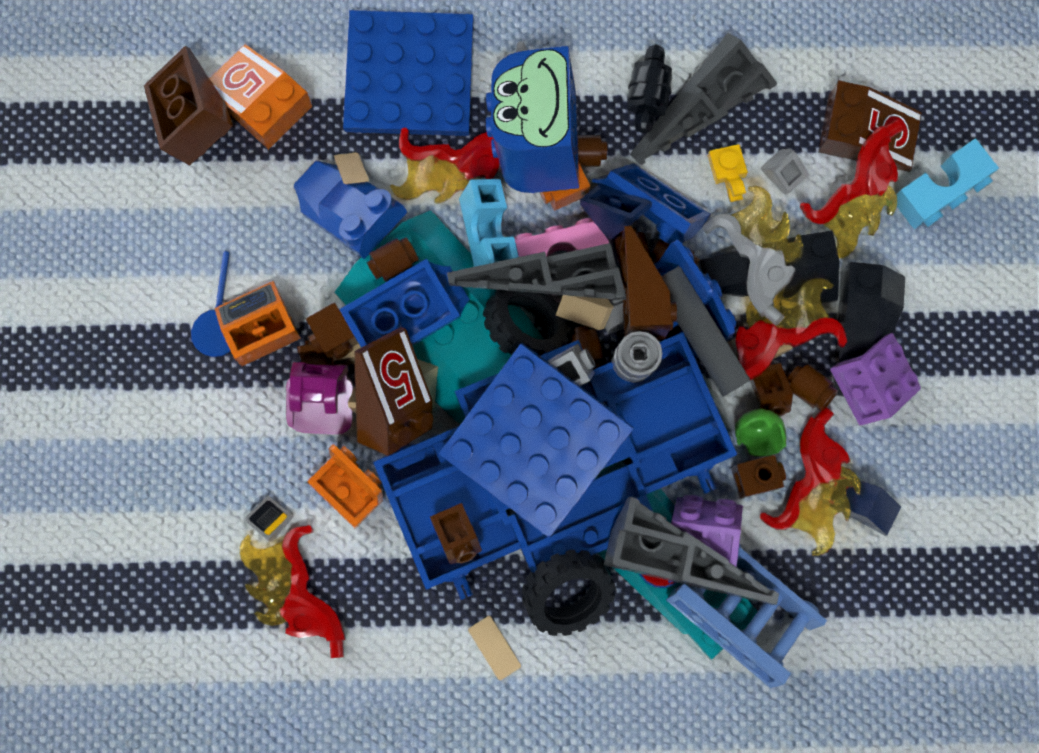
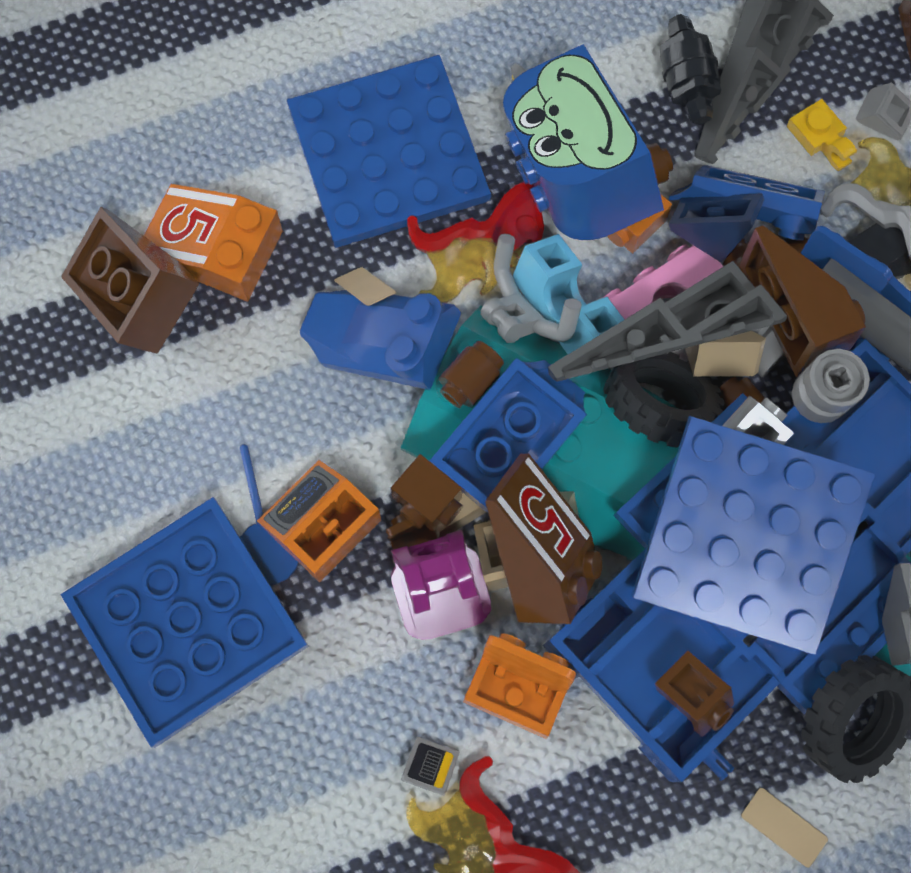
camera: 15 degrees left, 5 degrees down
(139, 359) = (184, 622): none -> blue plate
(455, 233) = (514, 314): none -> light grey piece

